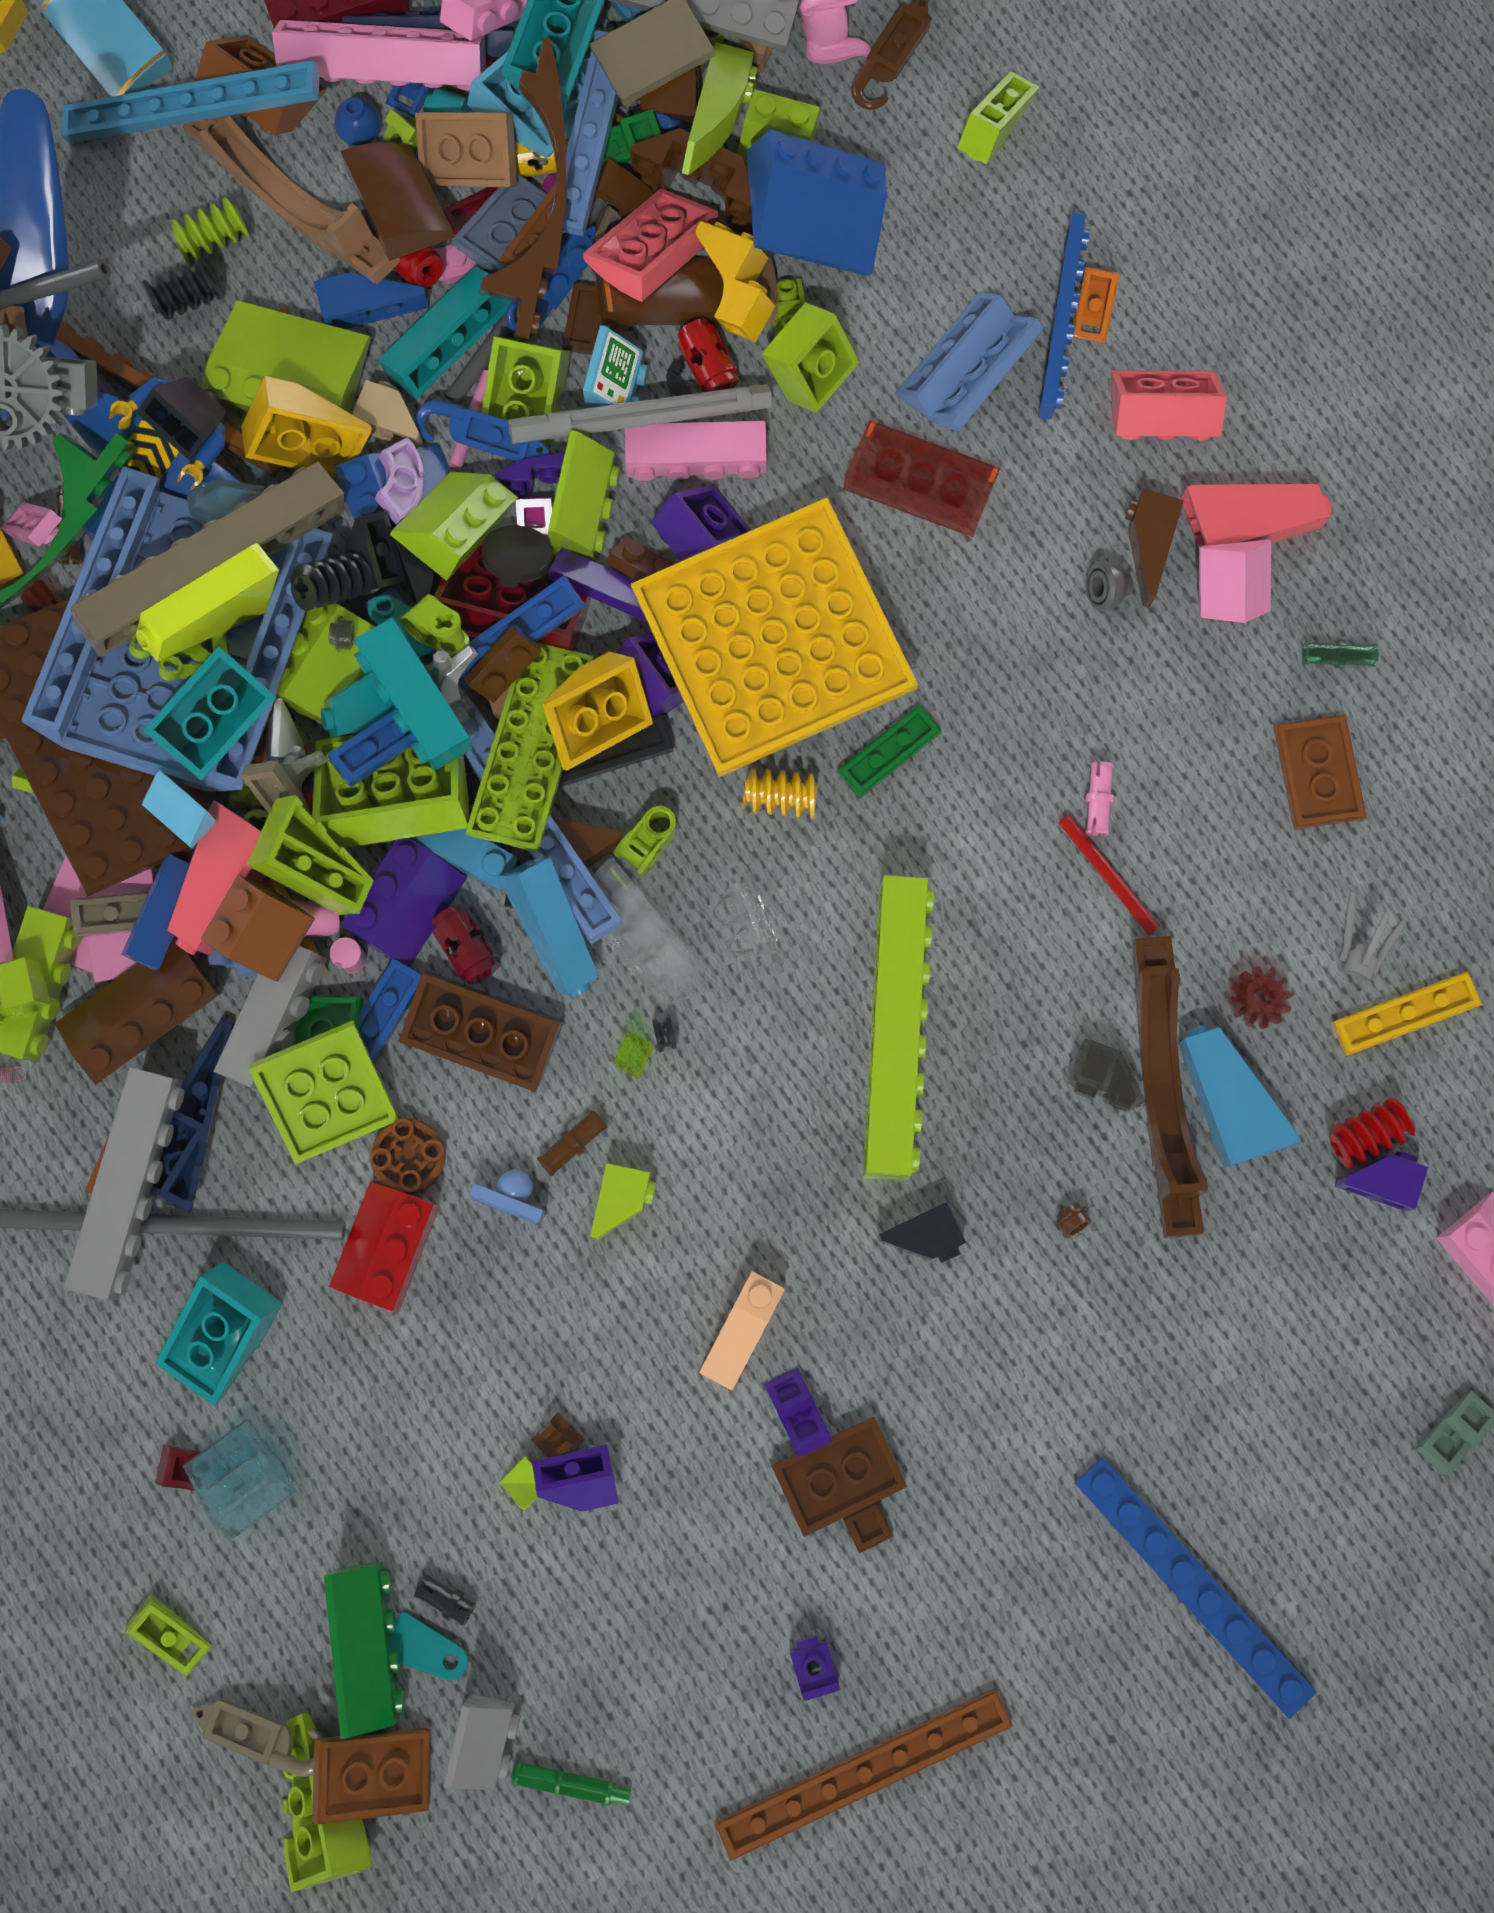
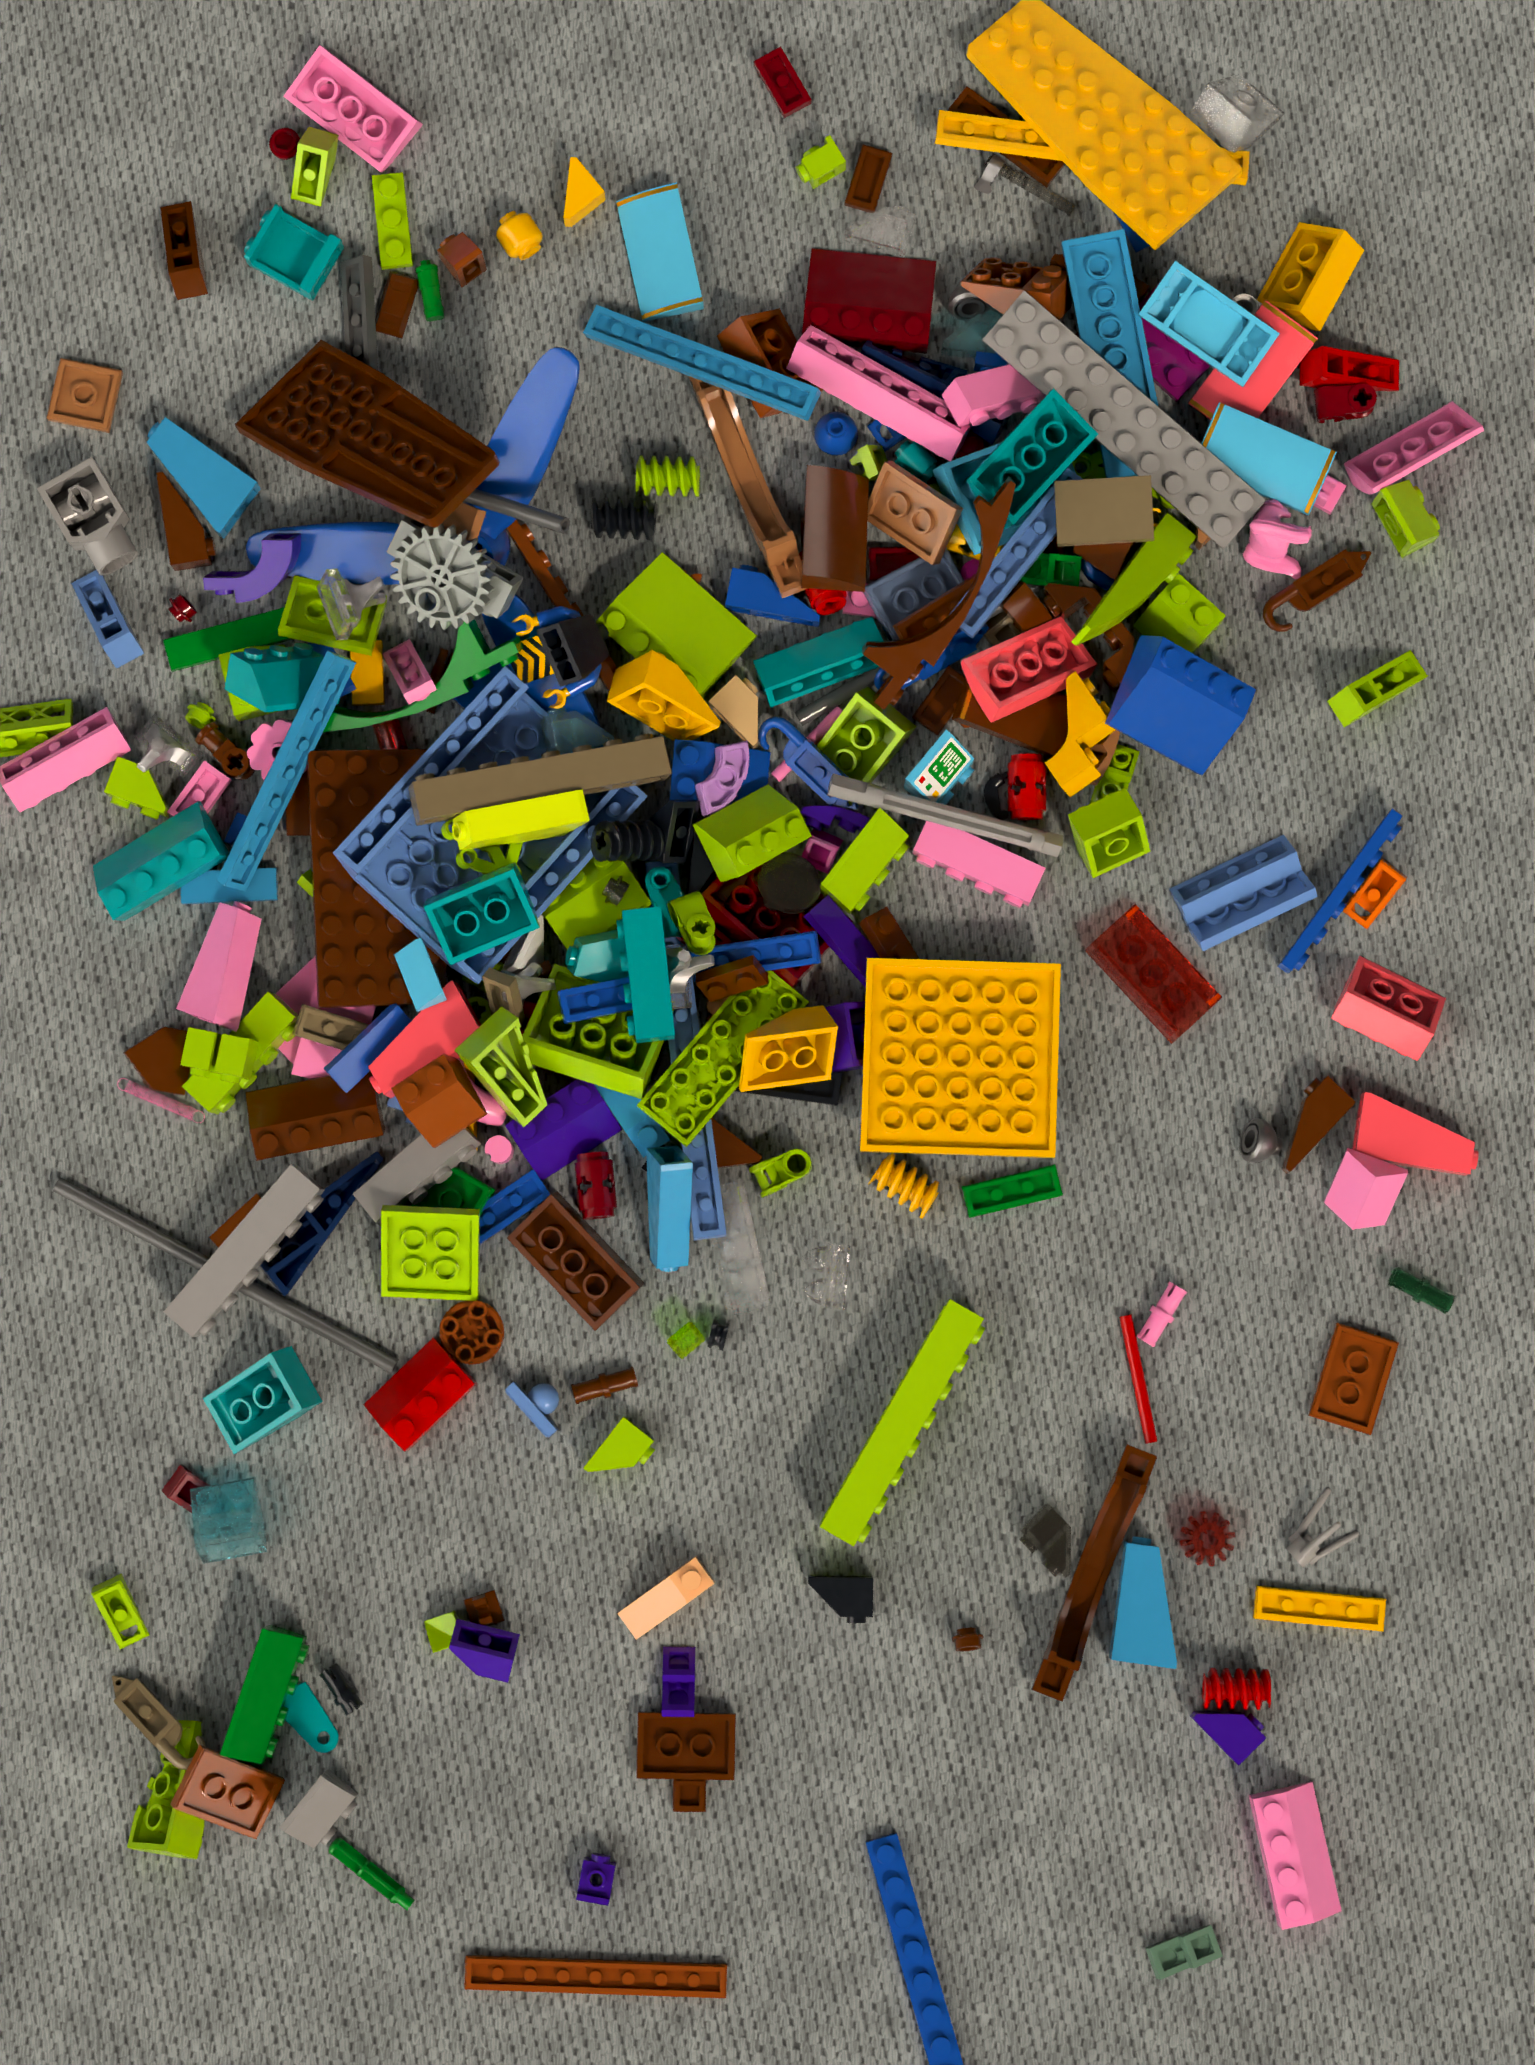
camera: 30 degrees right, 5 degrees up
(697, 521) = (952, 929): dark purple slope -> none

